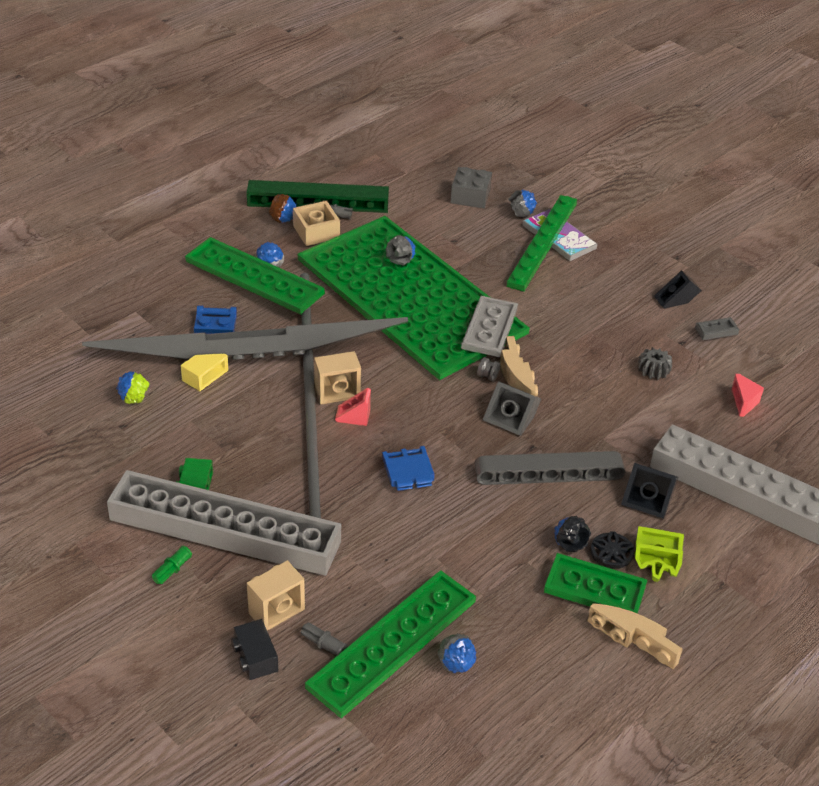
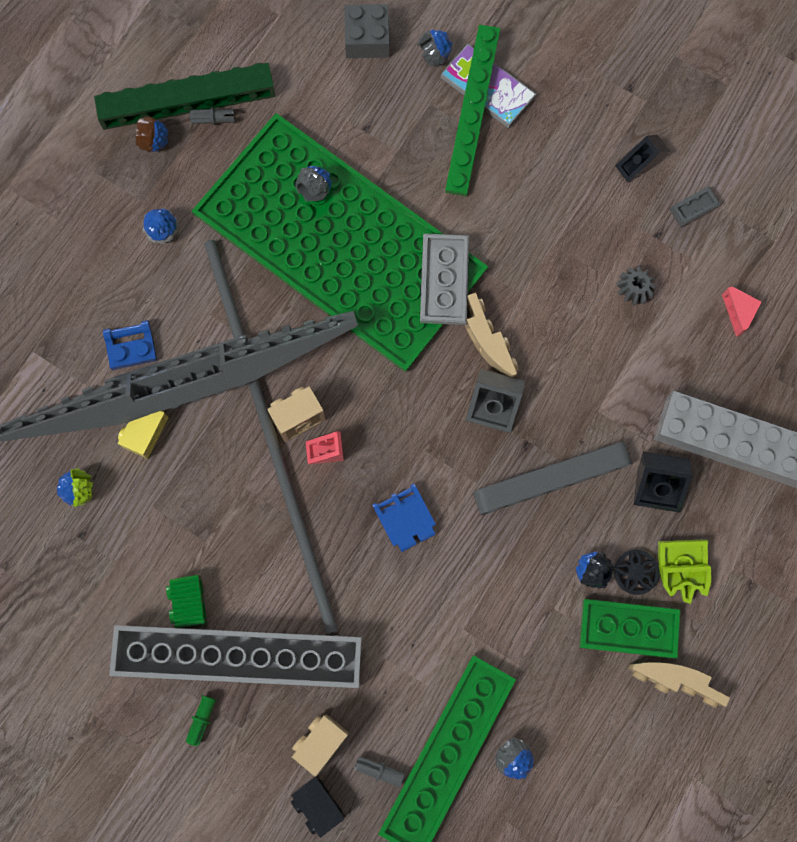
camera: 15 degrees left, 35 degrees up
(255, 275) = (152, 263): green plate -> none
(316, 223) = (198, 152): tan brick -> none
(488, 369) = (456, 345): flat silver wheel -> none

